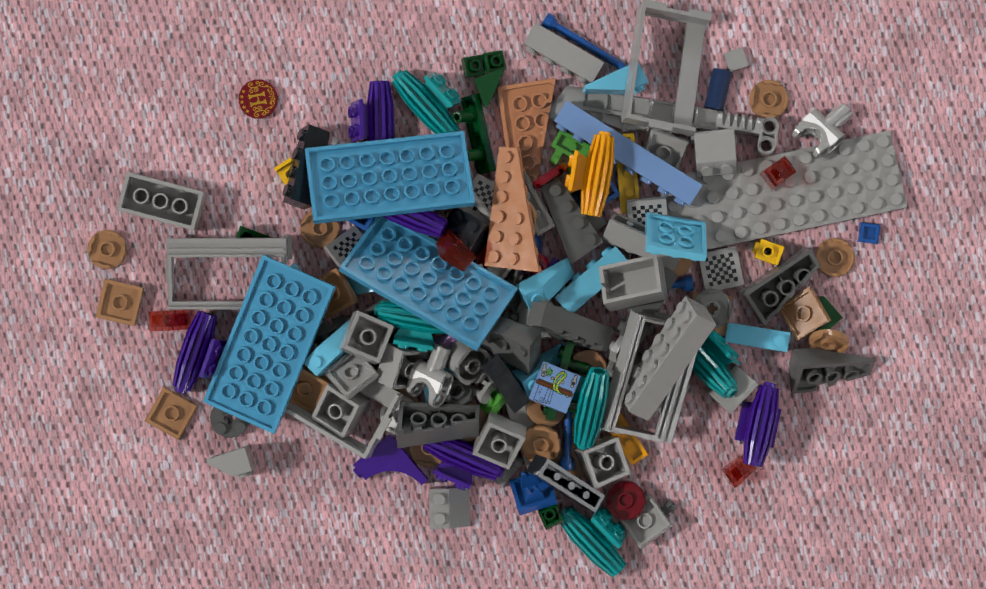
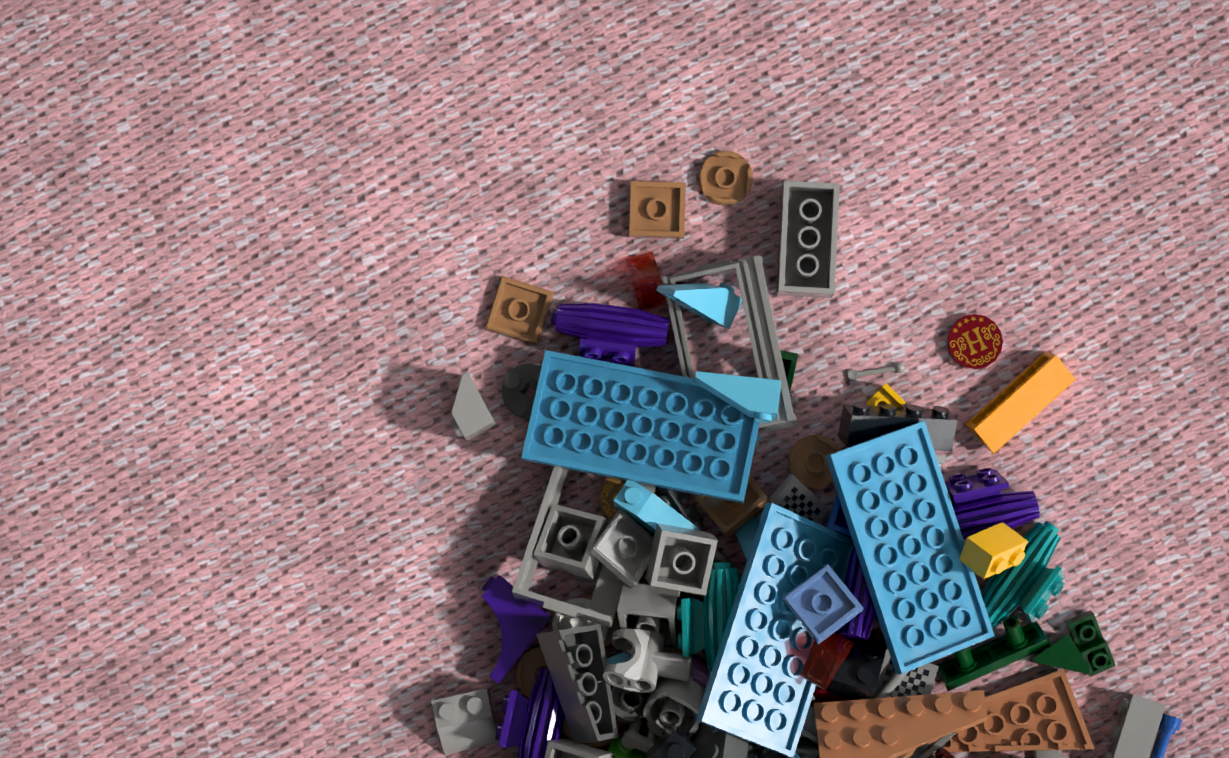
camera: 75 degrees right, 5 degrees down
(192, 278) = (706, 300): none -> medium azure slope
(261, 267) = (749, 395): none -> medium azure slope
(264, 189) = (898, 368): none -> light grey hinge
(306, 76) = (1020, 401): none -> light orange brick
(308, 390) = (589, 493): medium nougat plate -> none
(404, 119) = (993, 550): none -> yellow brick
(416, 246) = (822, 604): none -> medium blue tile

